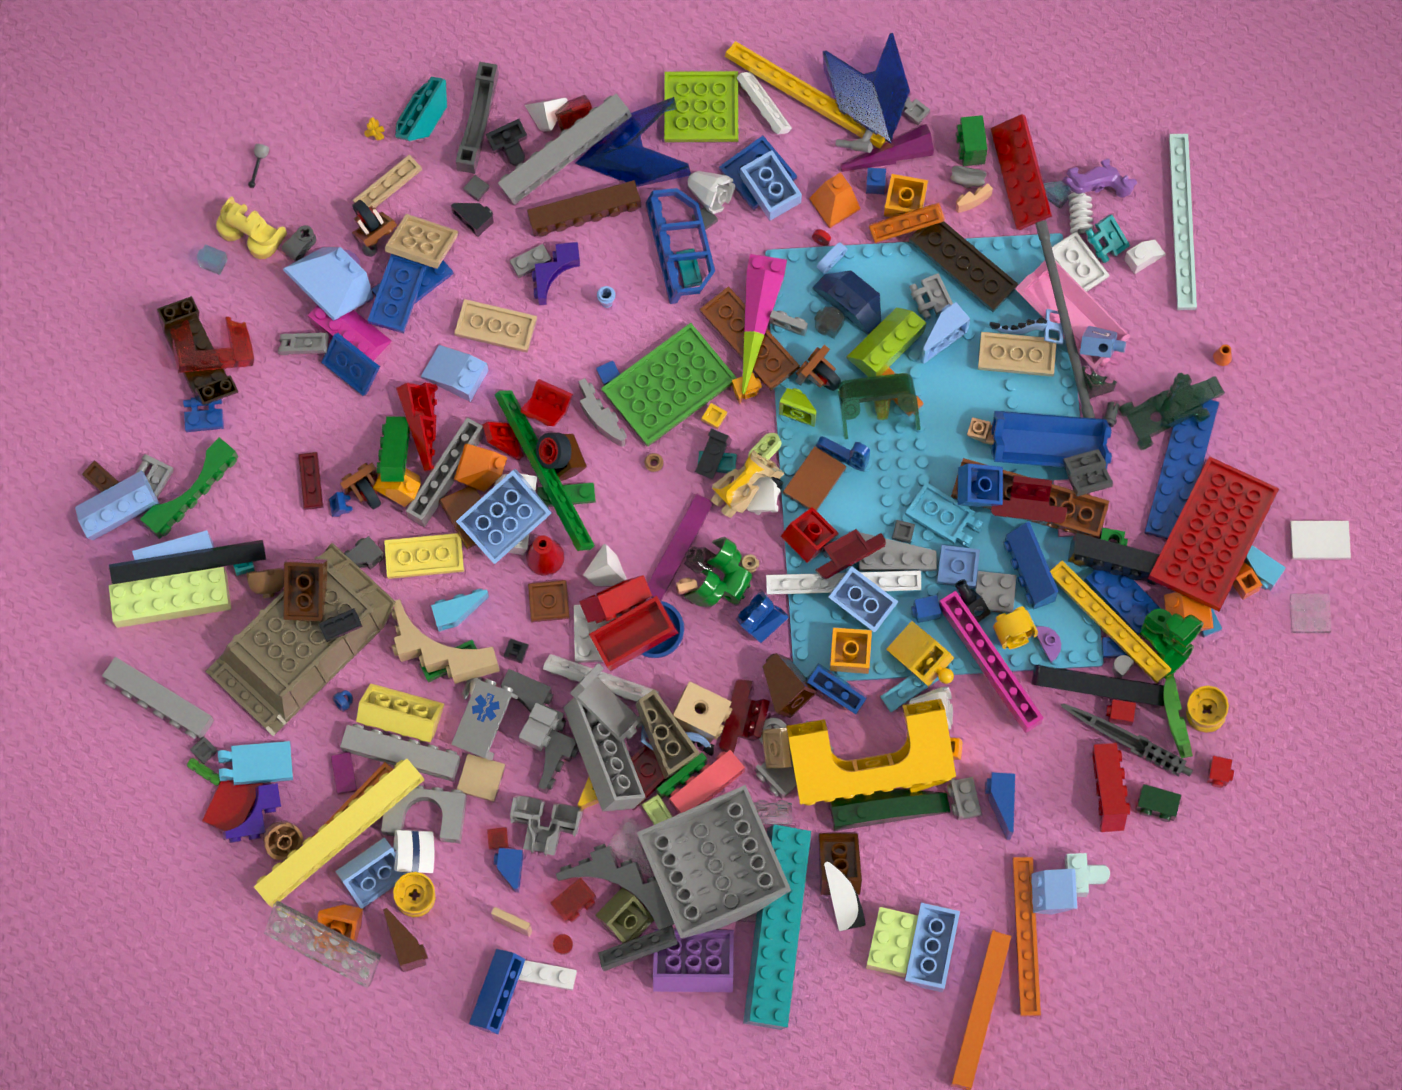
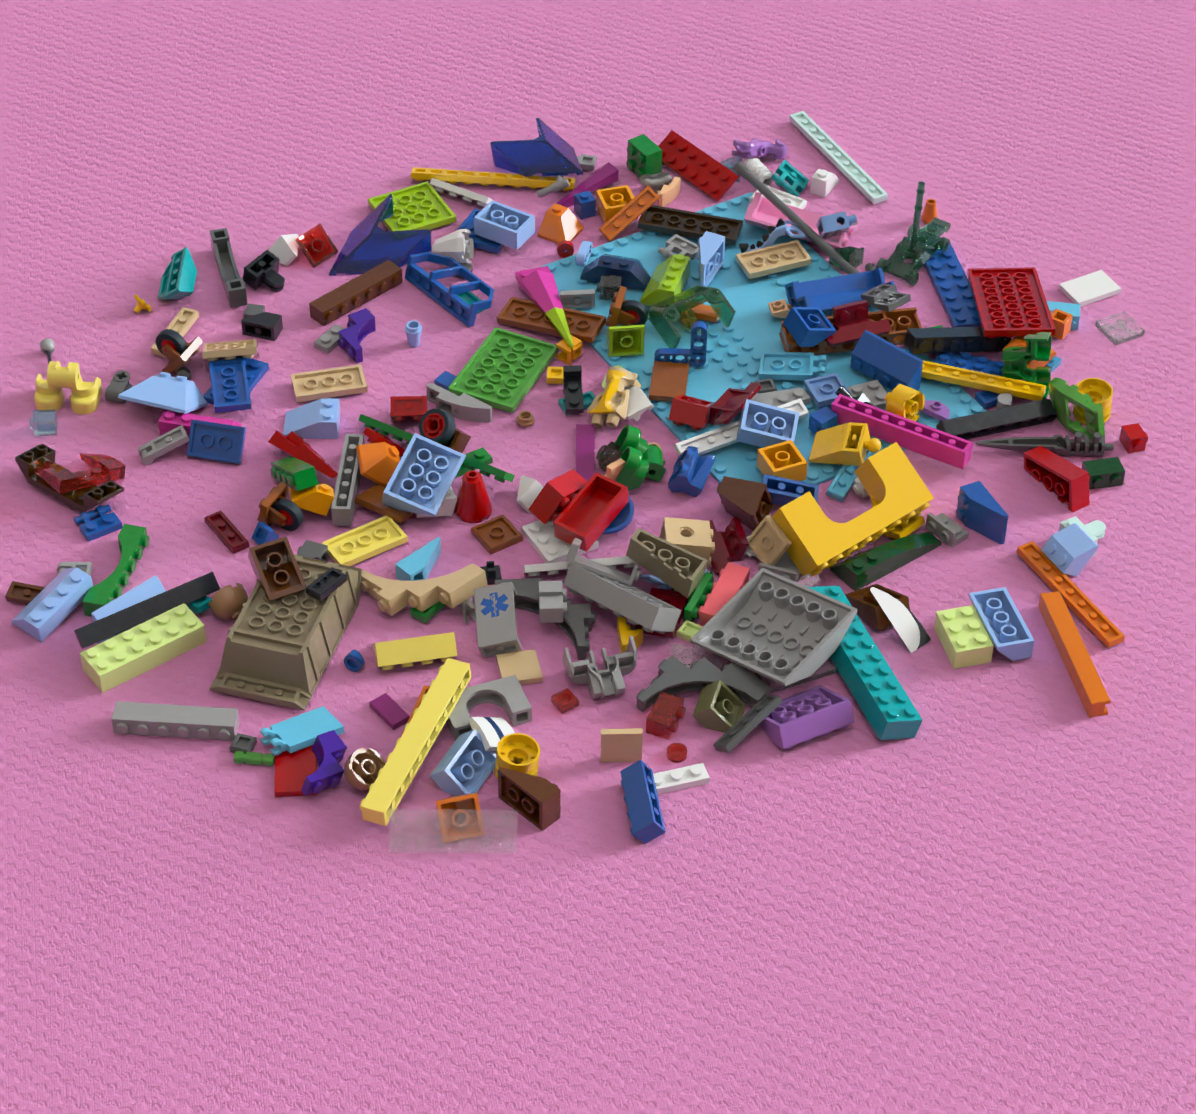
camera: 30 degrees left, 30 degrees down
(392, 750) = (411, 677): light grey brick -> none
(509, 865) = (589, 713): blue slope -> none
(564, 149) = (316, 260): light grey brick -> none
(1121, 712) = (1027, 428): red brick -> none

